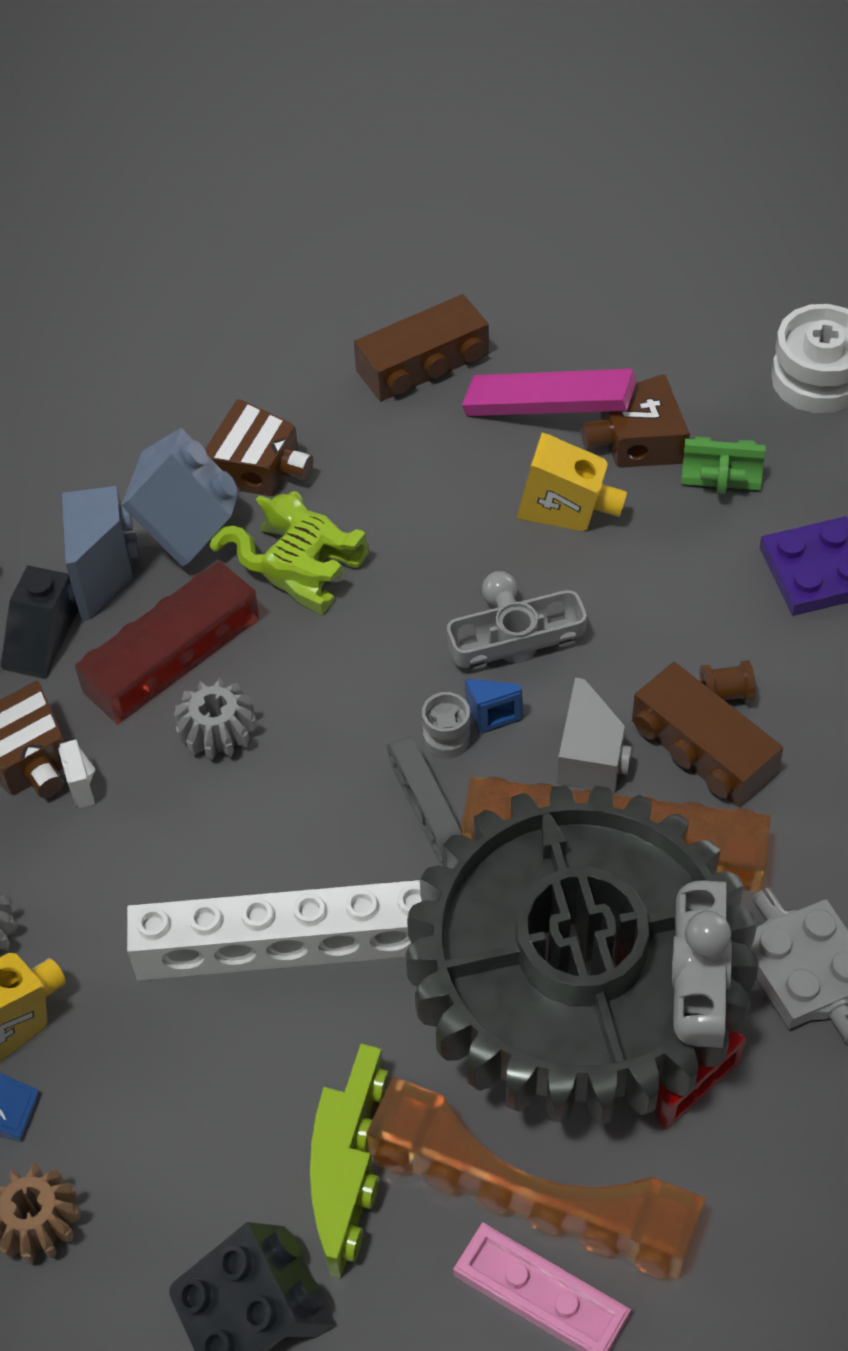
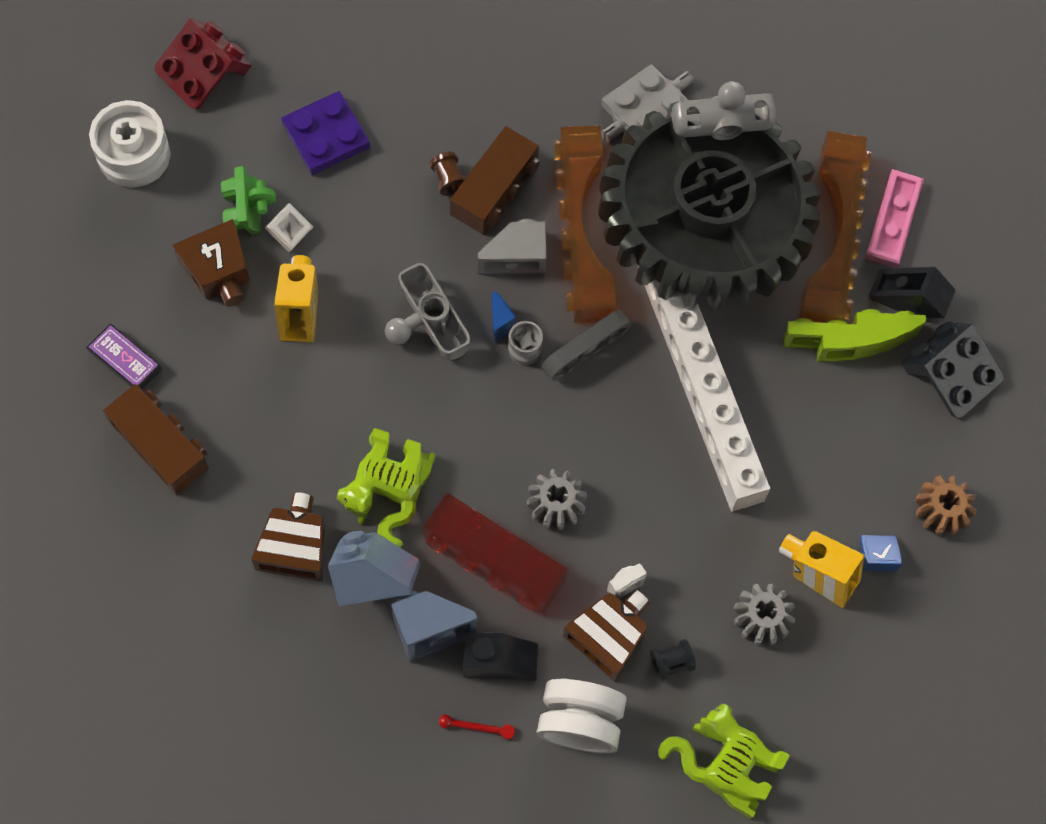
camera: 110 degrees left, 15 degrees up
(391, 1271) = (913, 290): none -> black slope
(537, 338) = (124, 357): none -> tile
(550, 392) = (200, 328): dark pink tile -> none
(678, 504) = (289, 227): none -> white tile

